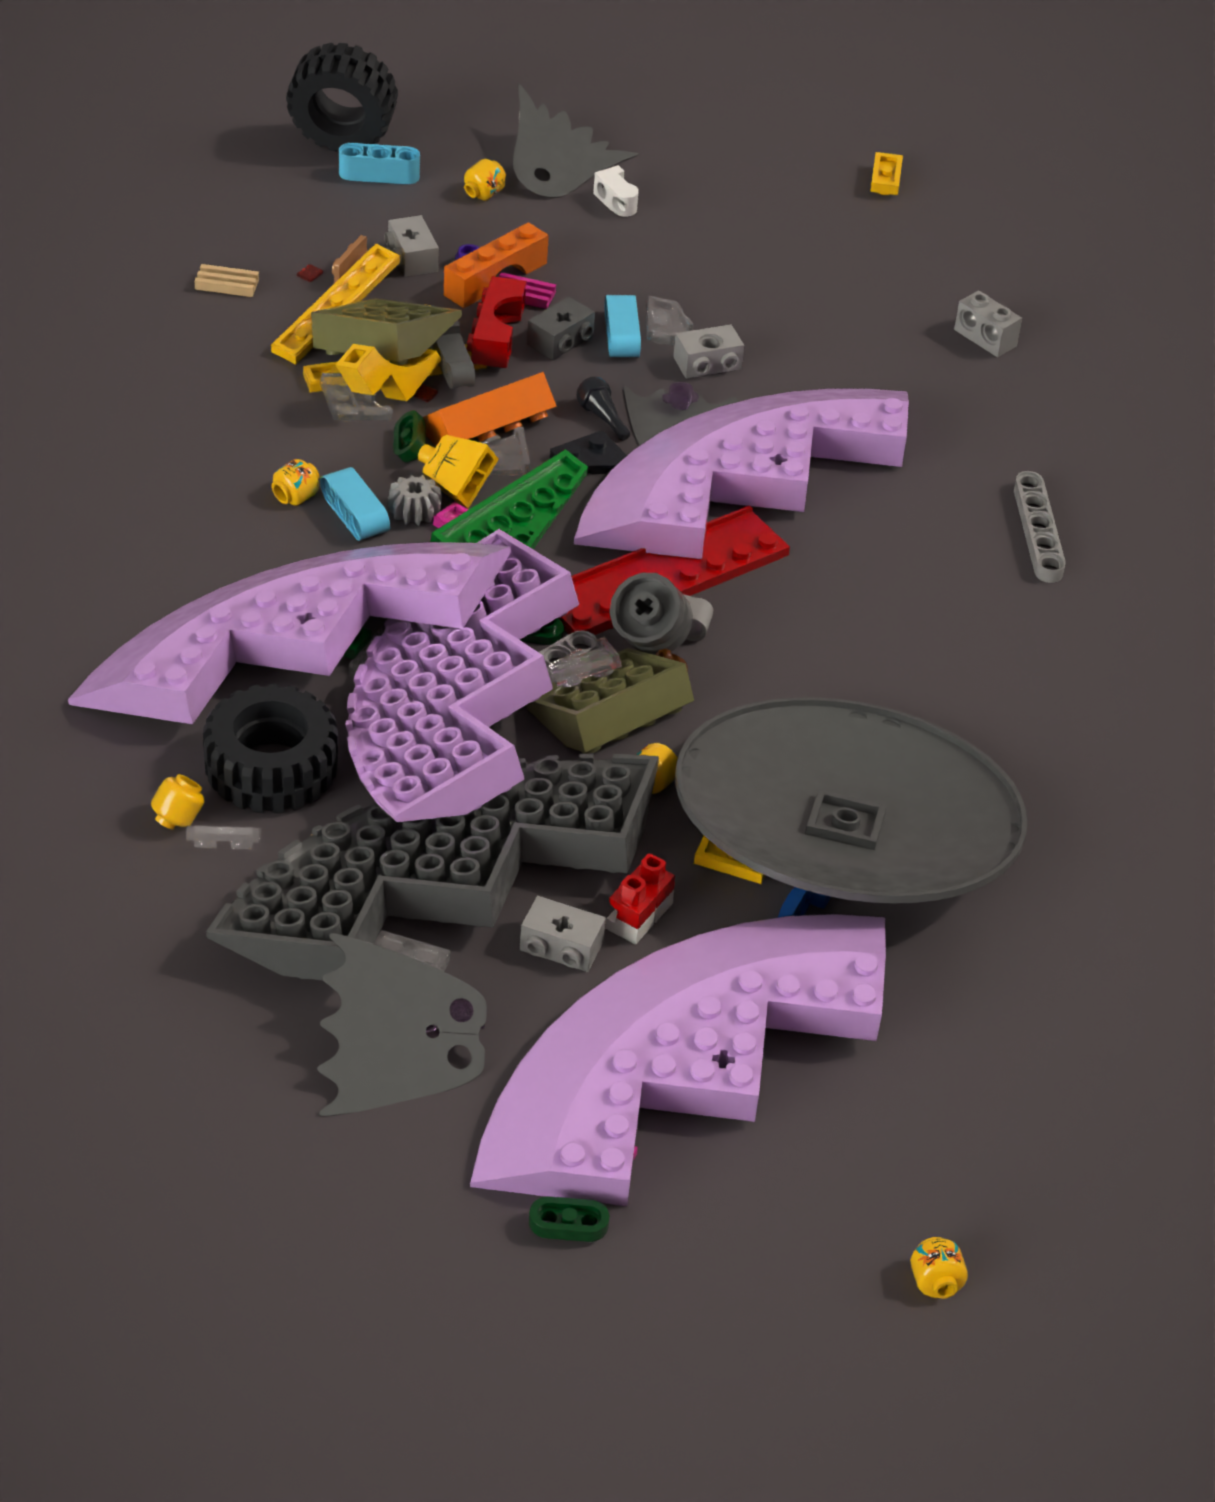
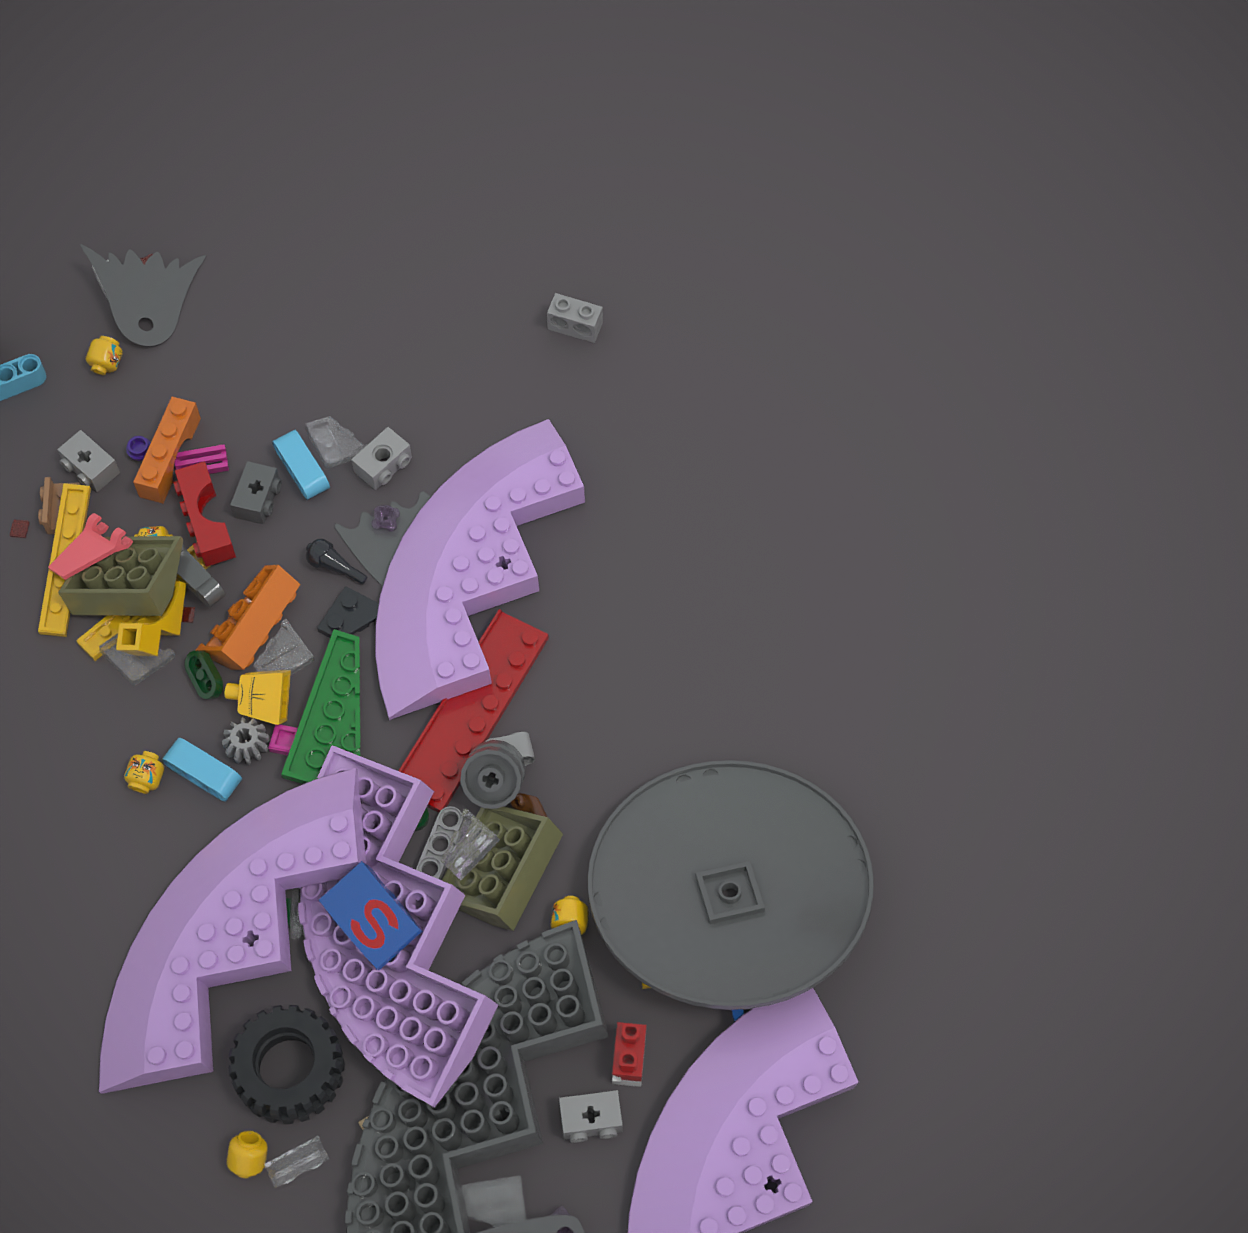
camera: 25 degrees left, 20 degrees up
(366, 294) = (89, 548): none -> coral flag
(441, 649) = (370, 915): none -> blue slope
(616, 193) = (215, 315): white leg -> none
(886, 173) = (413, 183): yellow plate -> none
(1035, 535) = (717, 523): light grey beam -> none

